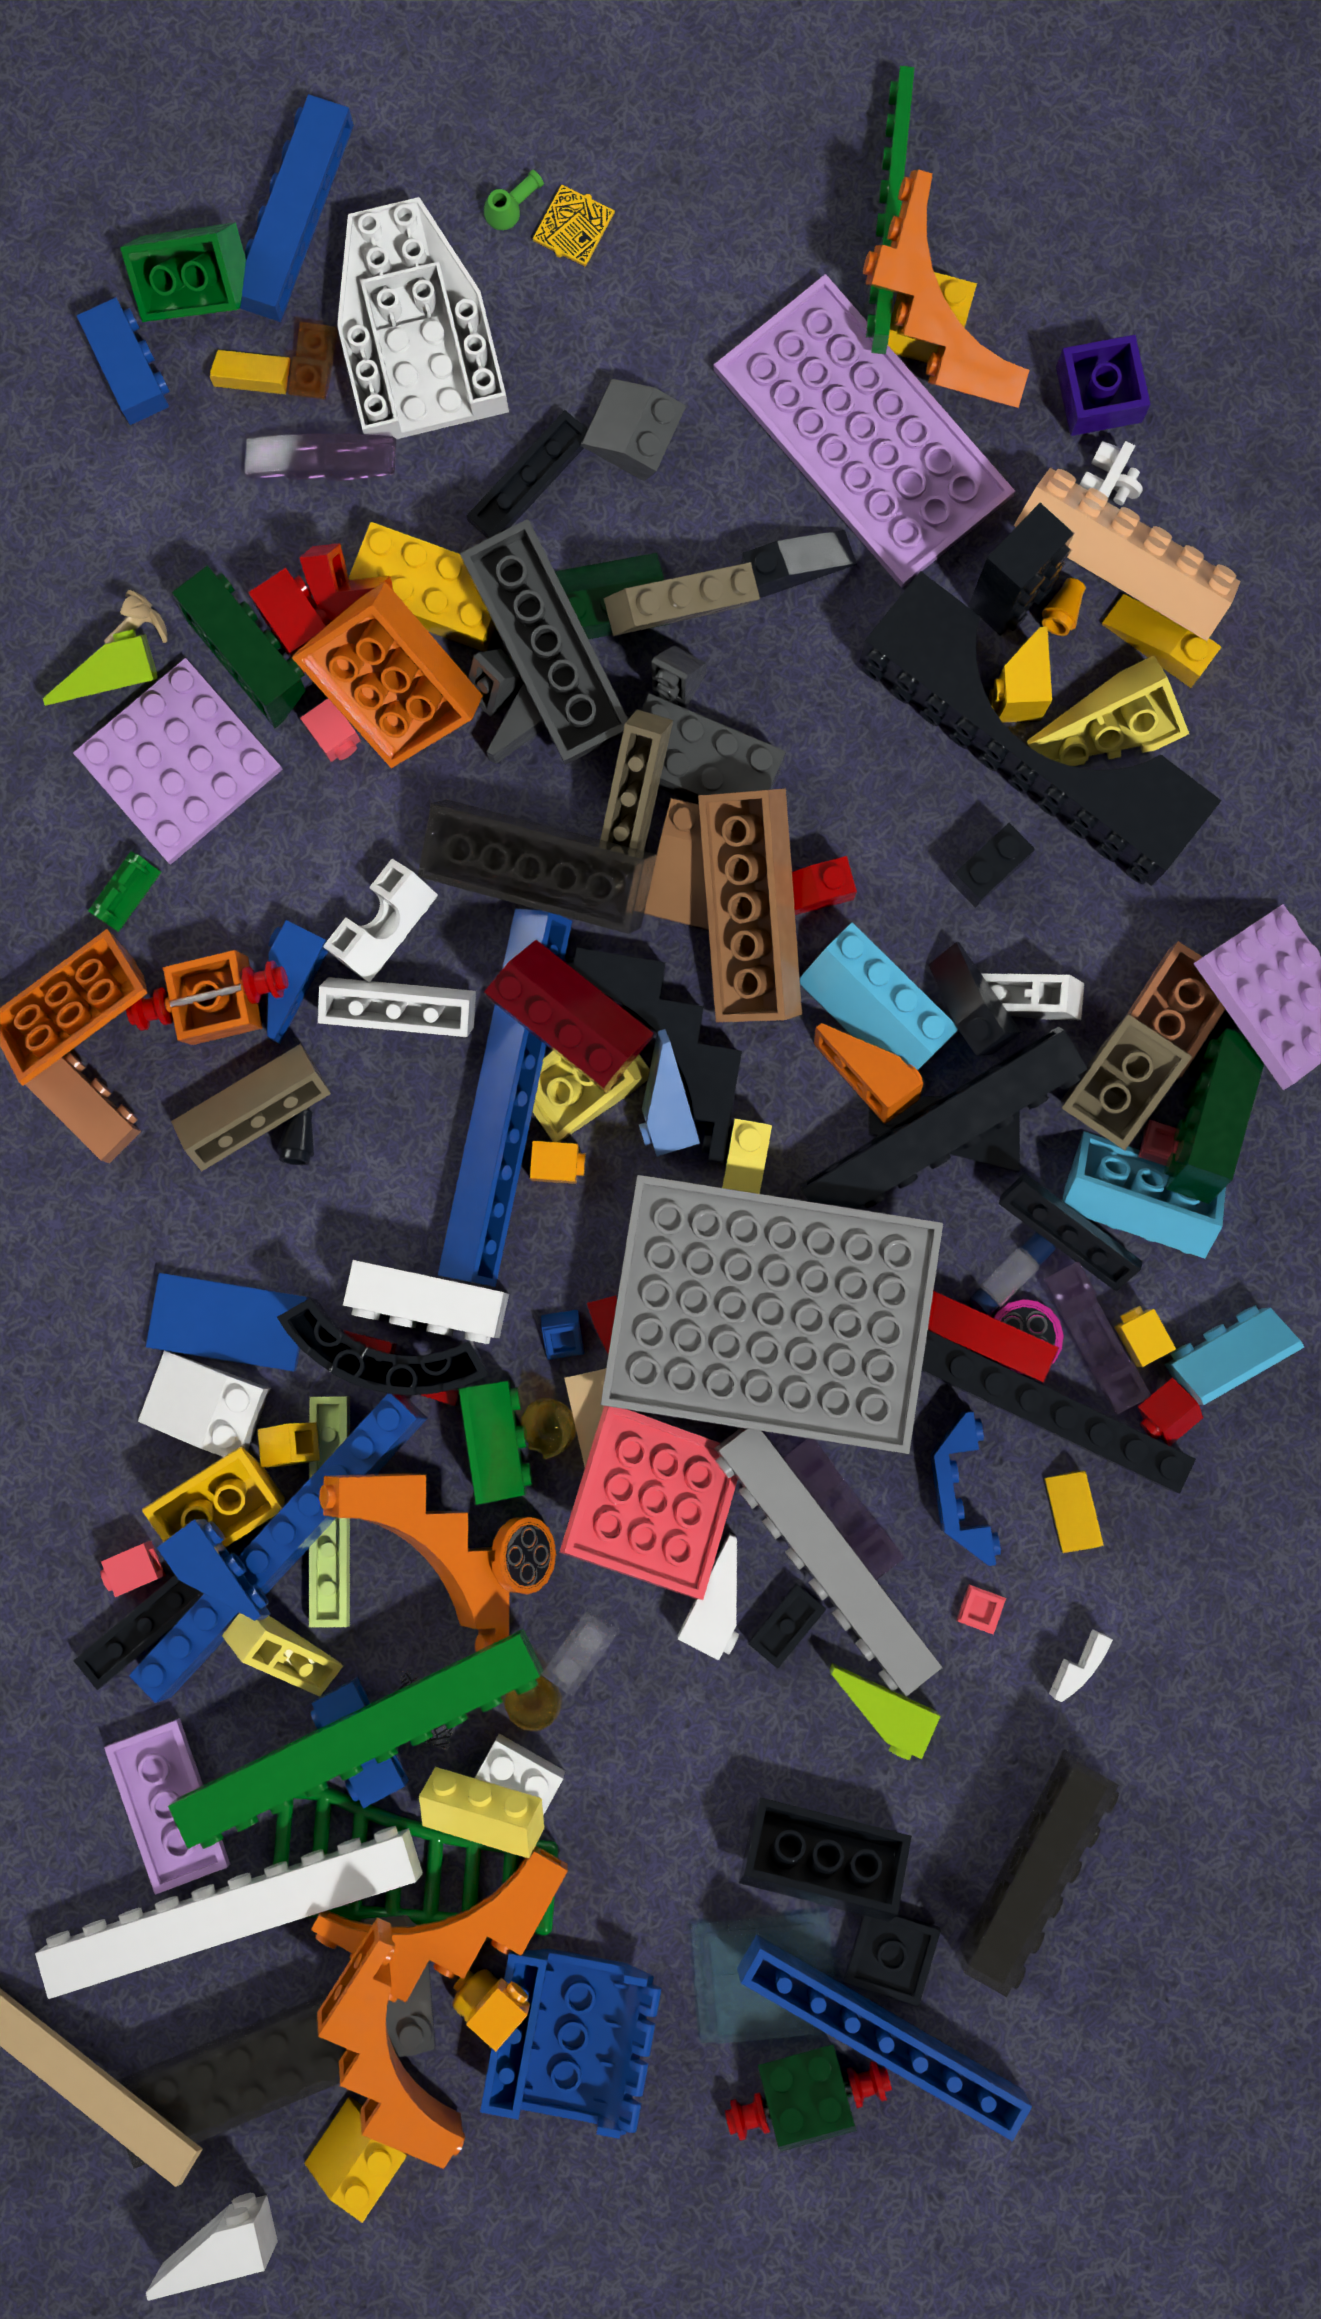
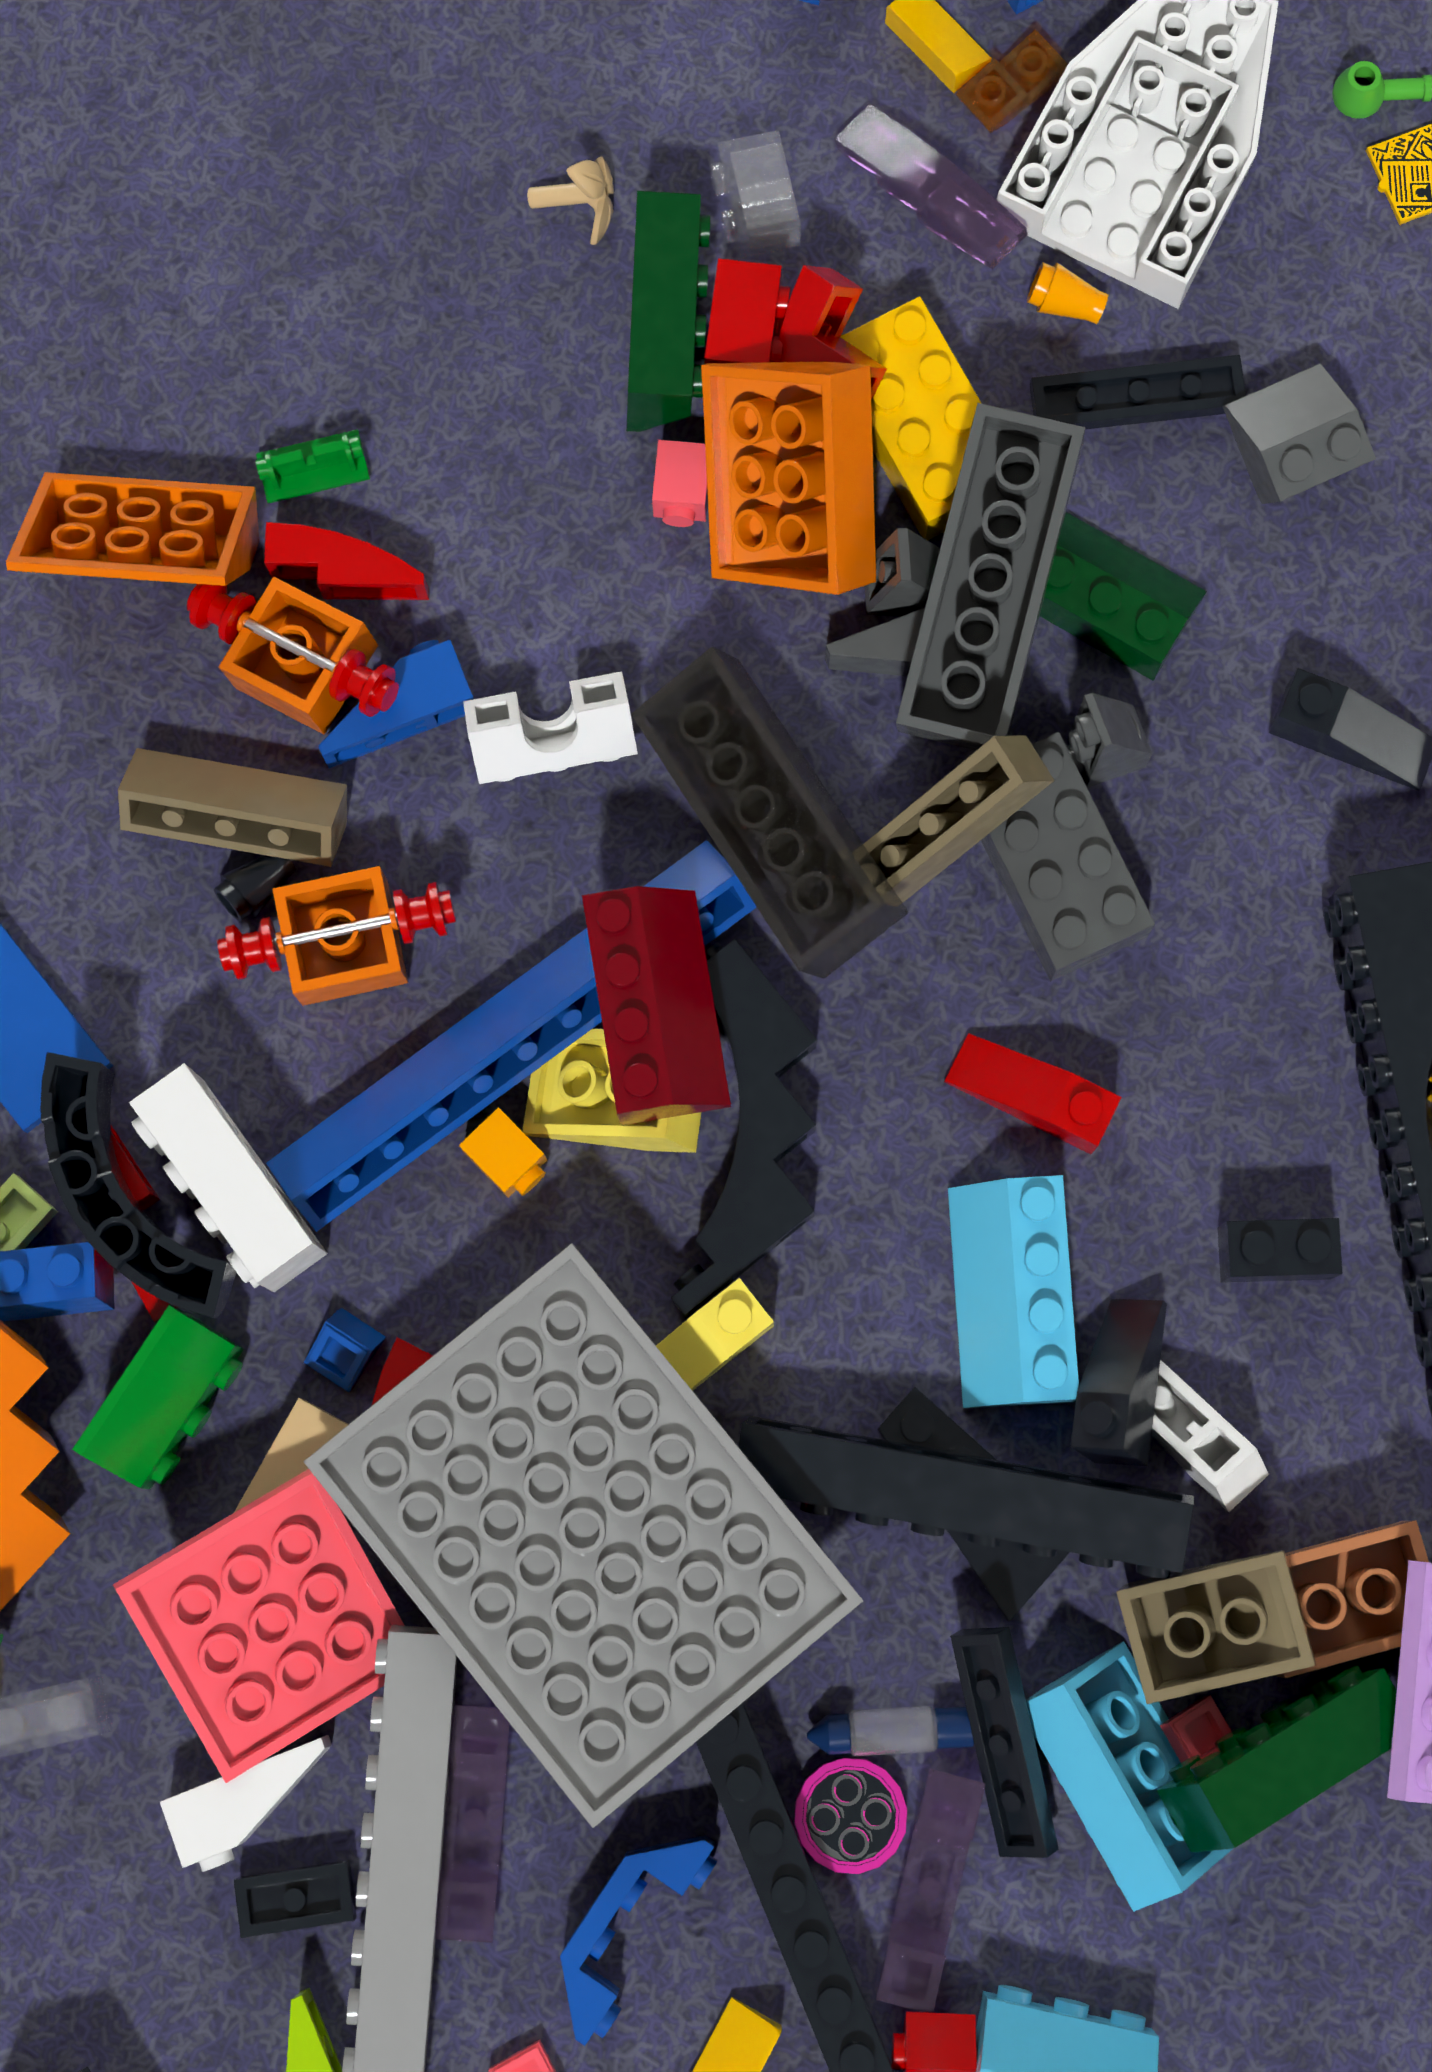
camera: 40 degrees right, 5 degrees down
(85, 1107) = (63, 654): nougat brick -> none
(111, 667) = (507, 218): lime slope -> none
(177, 761) = (492, 378): lavender plate -> none
(190, 930) = (340, 564): none -> red slope
(231, 539) = (757, 193): none -> clear brick
(368, 1124) = (338, 934): none -> orange brick
(396, 1007) = (484, 835): white brick -> none
(444, 454) = (1065, 294): none -> light orange cone
(523, 1555) = (79, 1554): tile -> none
(548, 1426) = (235, 1437): clear yellow hair -> none
(665, 1104) = (674, 1202): medium blue slope -> none
(678, 874) = (945, 961): medium nougat slope -> none
(681, 598) = (1184, 659): dark tan brick -> none
(750, 905) = (964, 1059): medium nougat slope -> none
(874, 1073) = (940, 1367): orange slope -> none
(991, 1337) = (807, 1778): red slope -> none
(1144, 1336) = (985, 1937): yellow brick -> none

